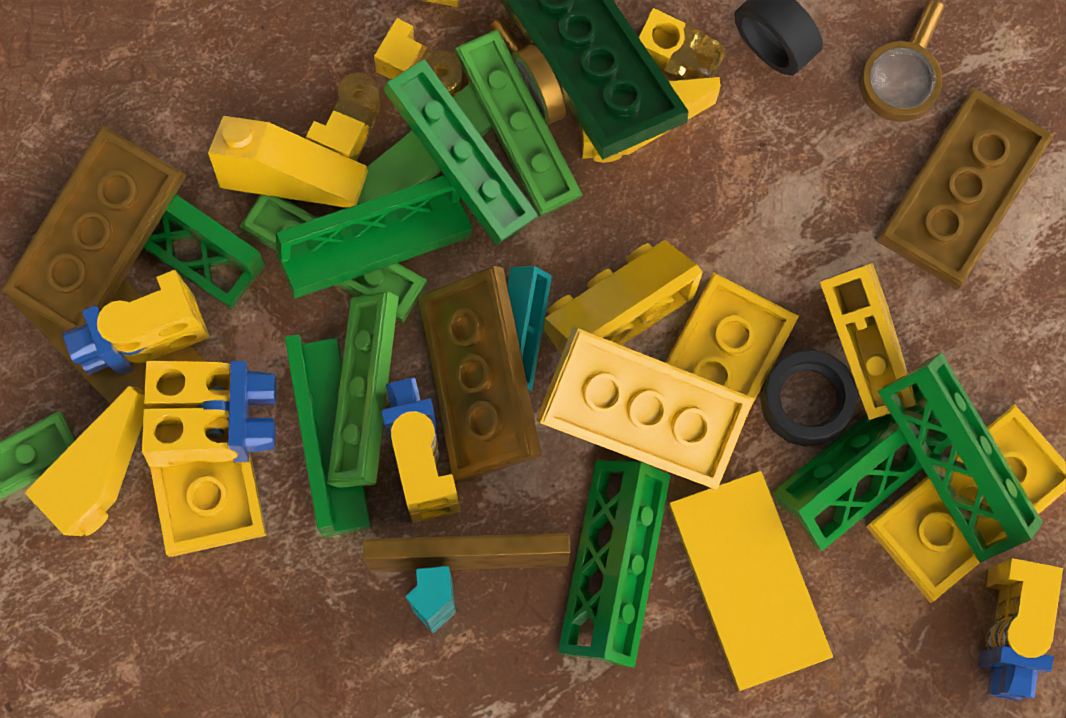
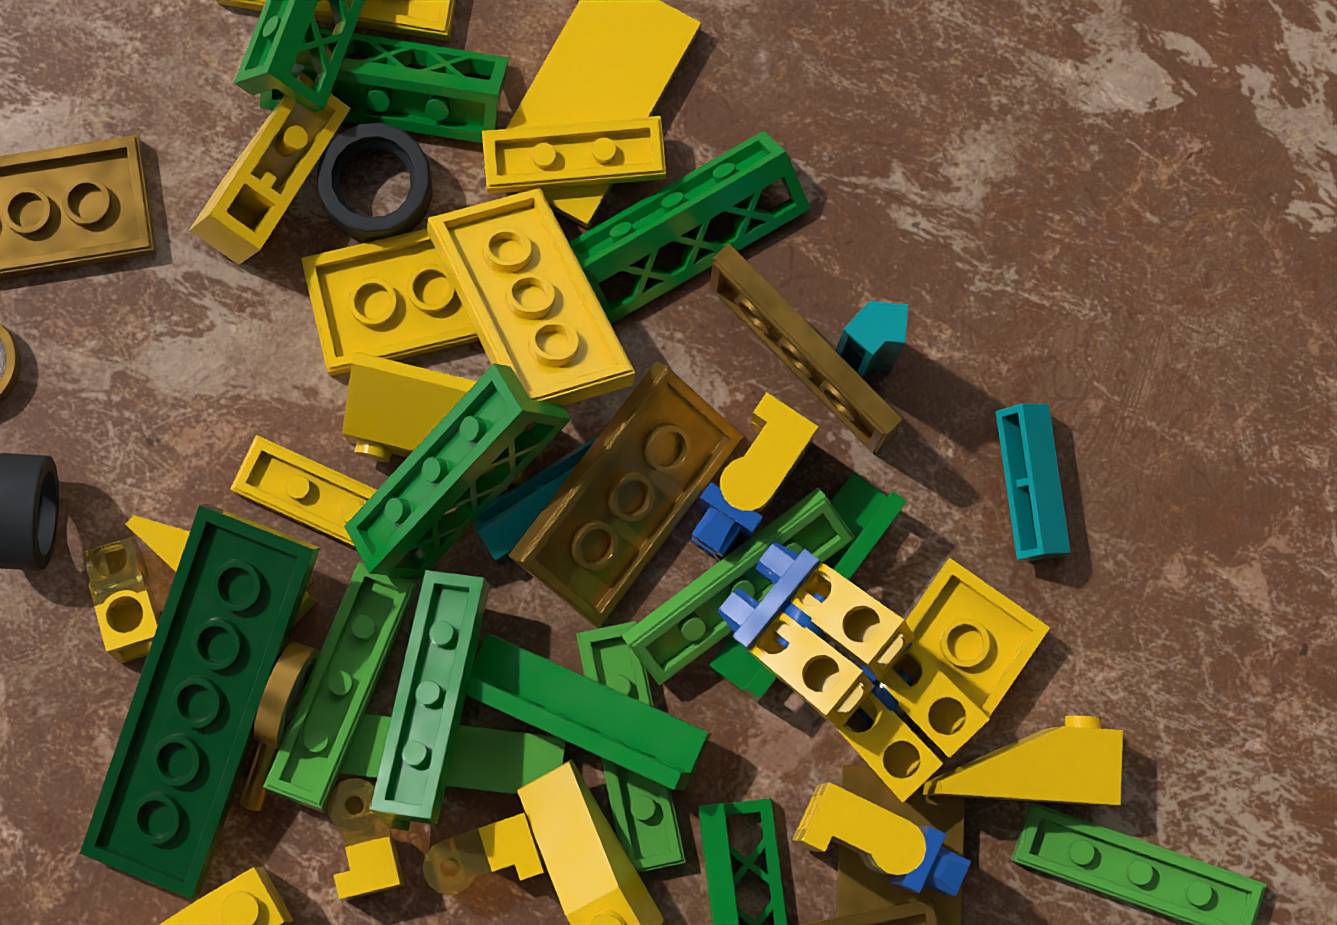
camera: 135 degrees left, 5 degrees up
(261, 627) = (1041, 481): none -> teal piece
(287, 391) = (798, 615): none -> yellow hips
(577, 272) = (448, 474): none -> green fence
(636, 210) = (300, 488): none -> yellow tile
(720, 530) = (574, 154): none -> yellow tile

